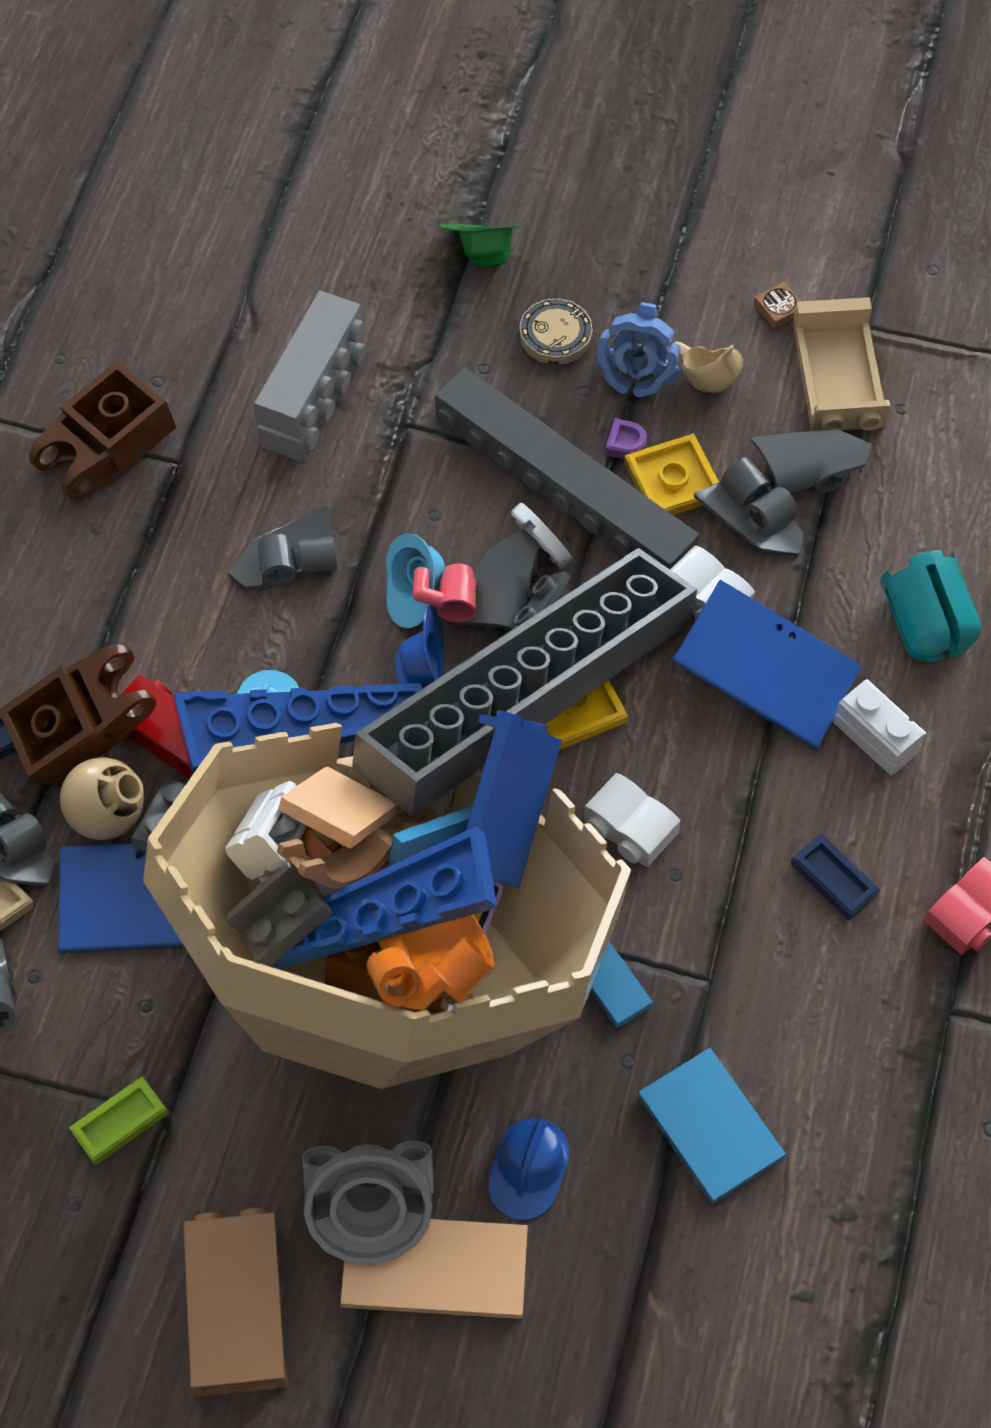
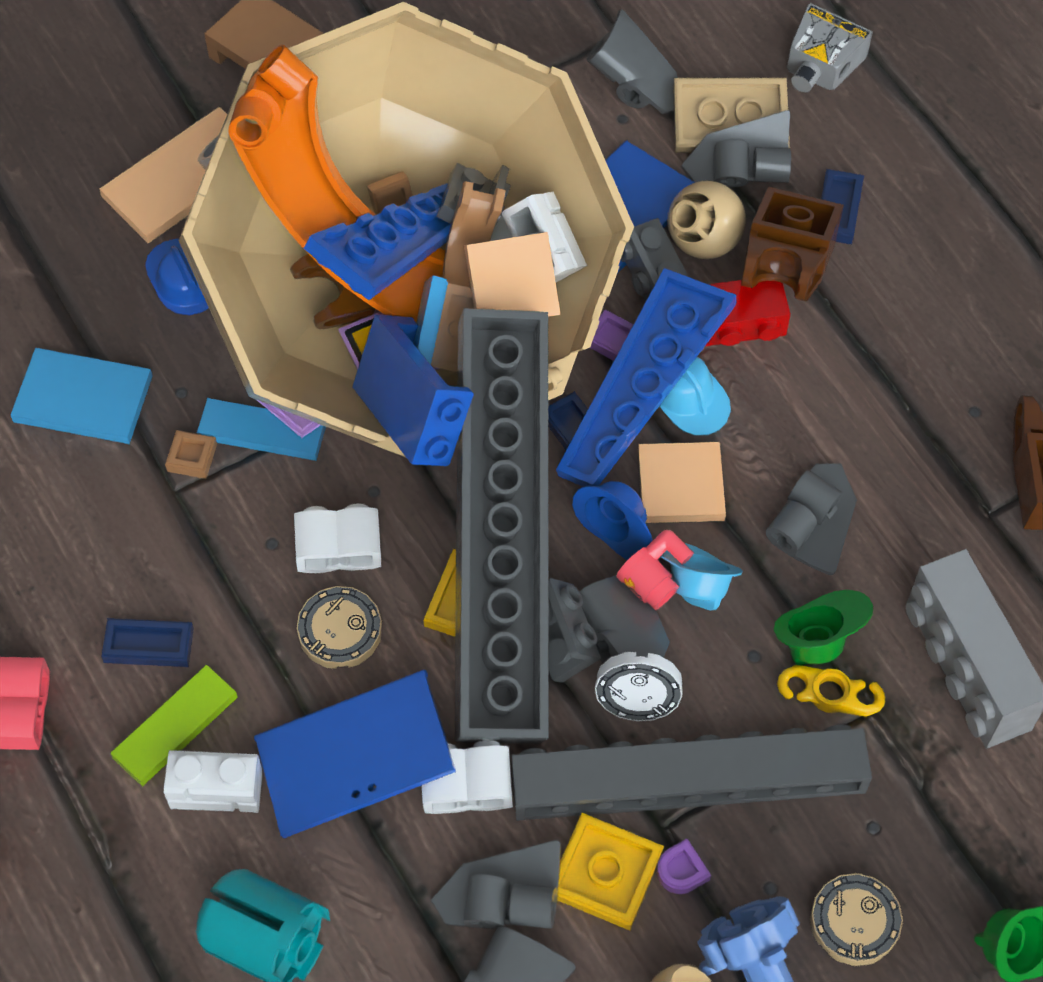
camera: 135 degrees right, 0 degrees up
(347, 651) = (681, 482): none -> light nougat tile
(378, 471) = (820, 627): none -> green piece
(416, 464) = (846, 704): none -> yellow piece
(671, 995) = (191, 454): none -> medium nougat tile
(689, 765) = (339, 627): none -> tile
(868, 800) = (174, 725): none -> lime tile

